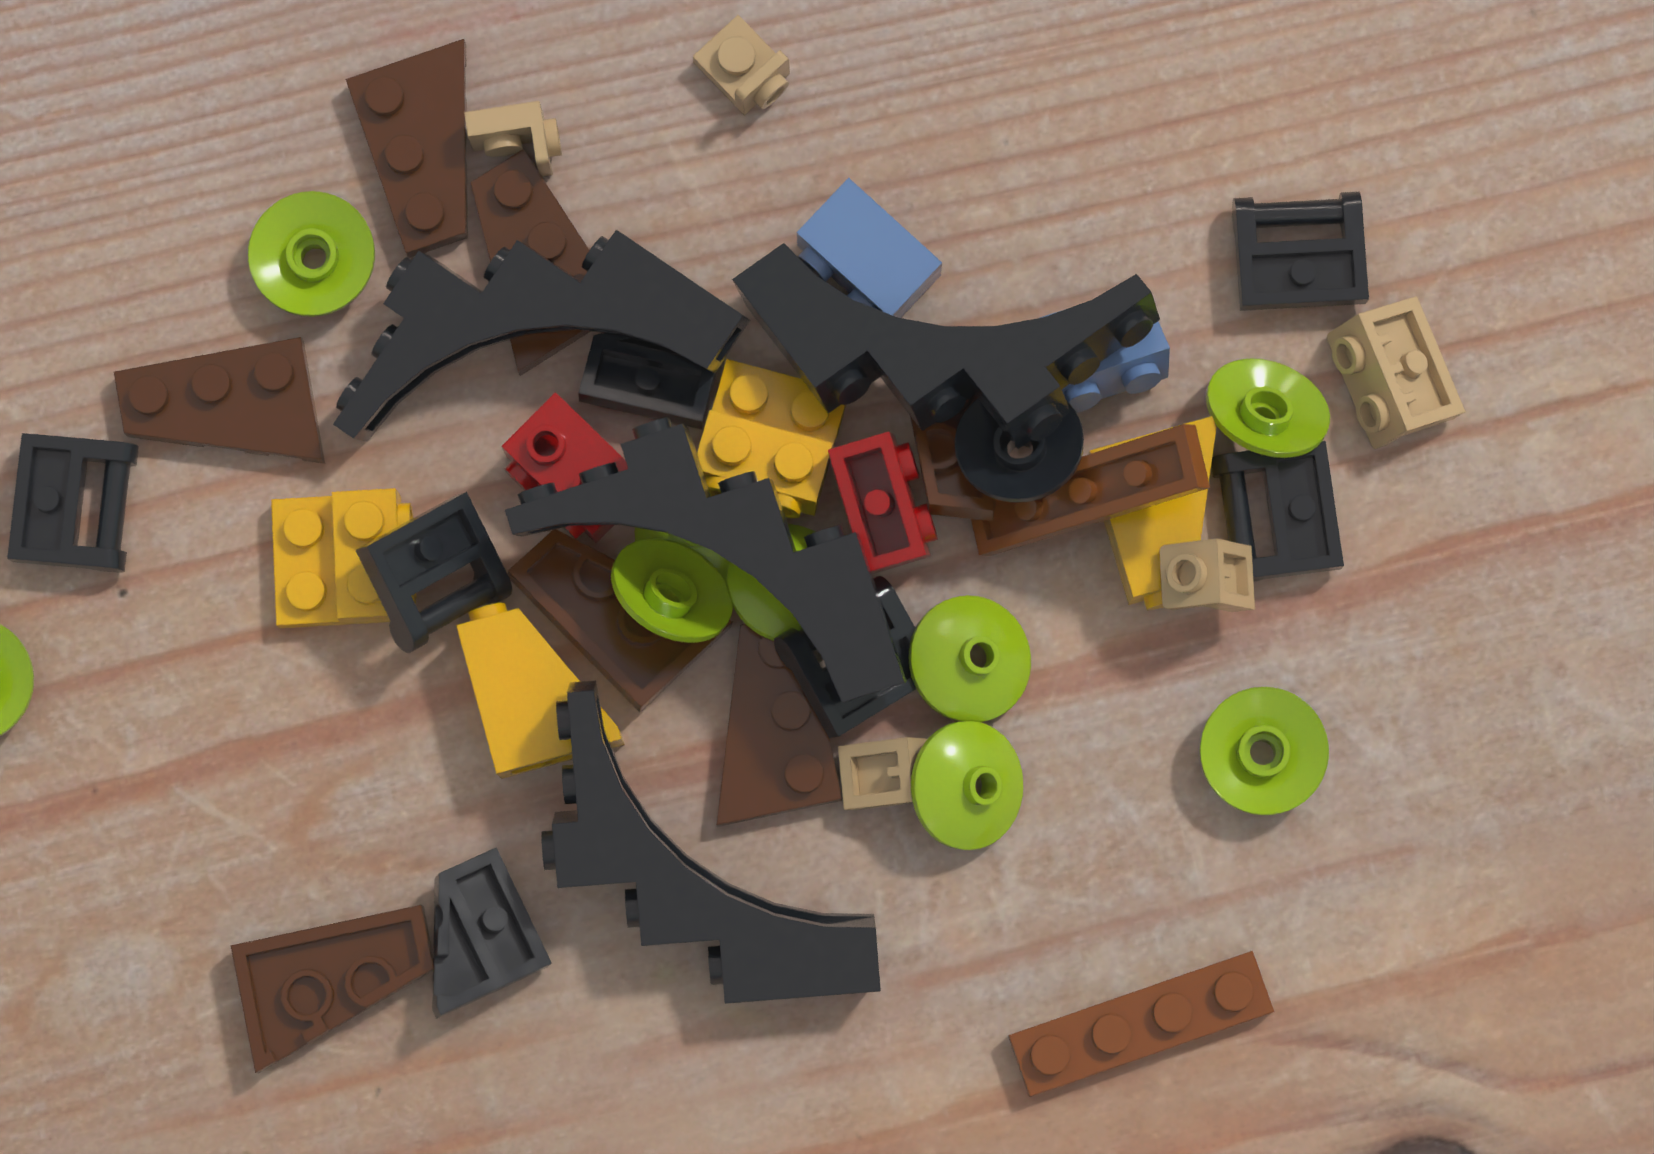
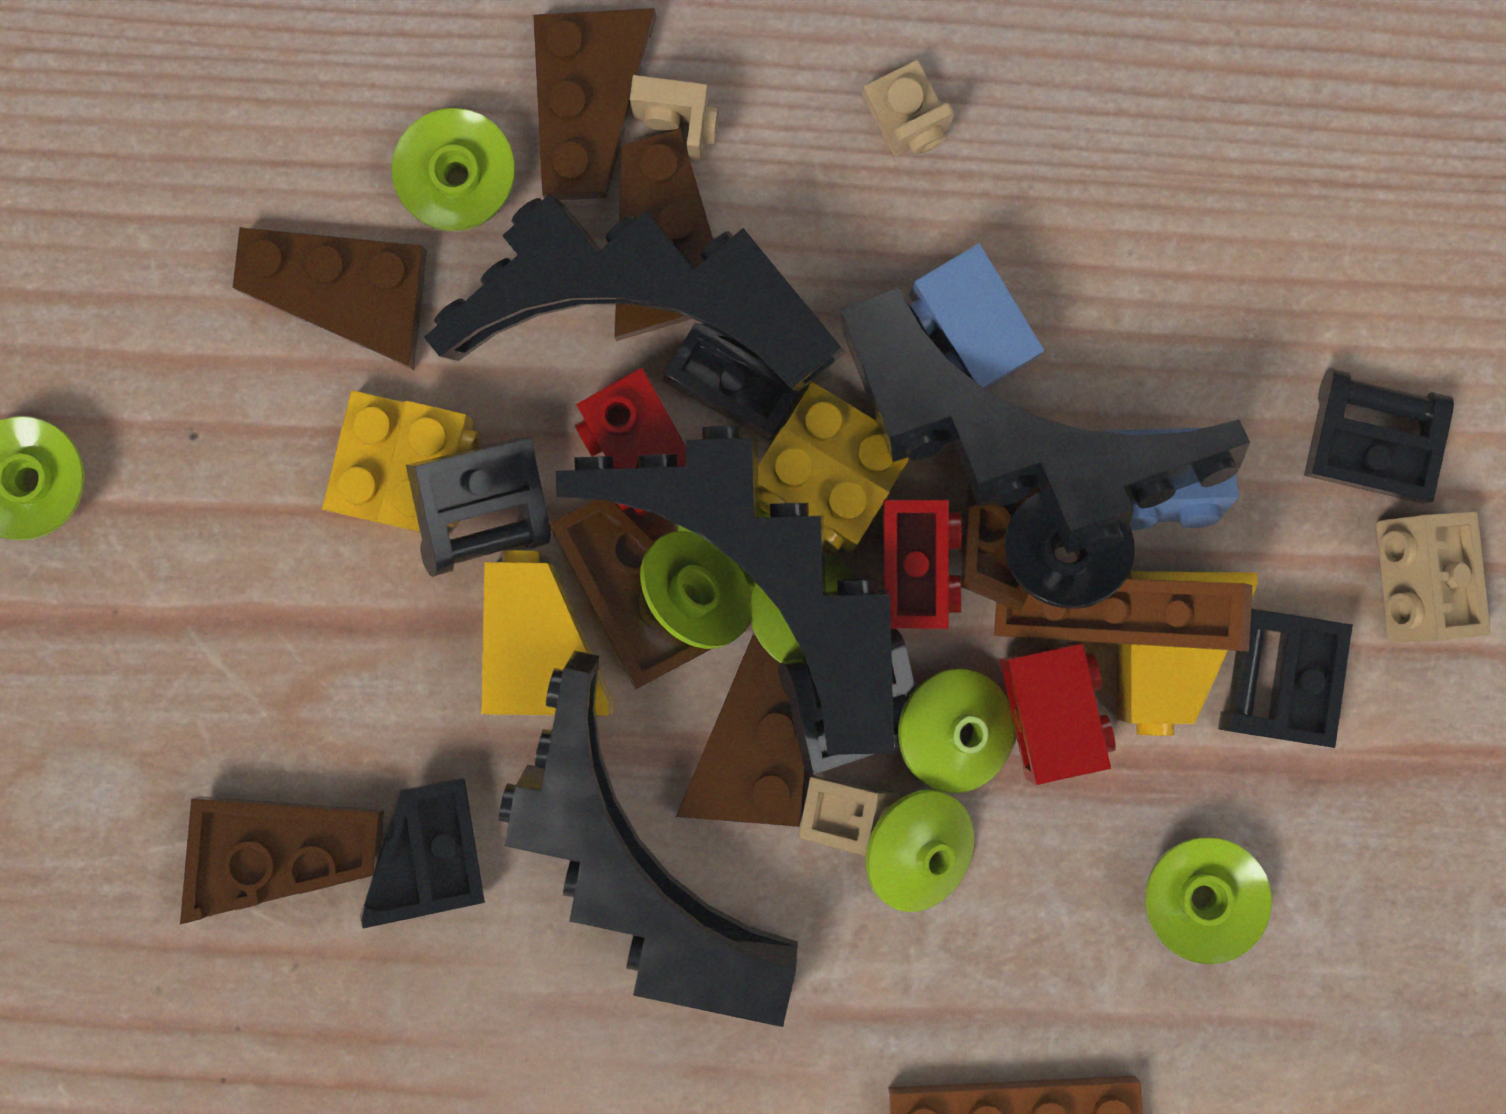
camera: 15 degrees right, 5 degrees up
(51, 502) = (147, 333): black plate -> none
(1060, 609) = (1057, 712): none -> red brick
(1207, 575) = (1206, 724): tan bracket -> none
(1267, 408) = (1307, 578): lime dish -> none

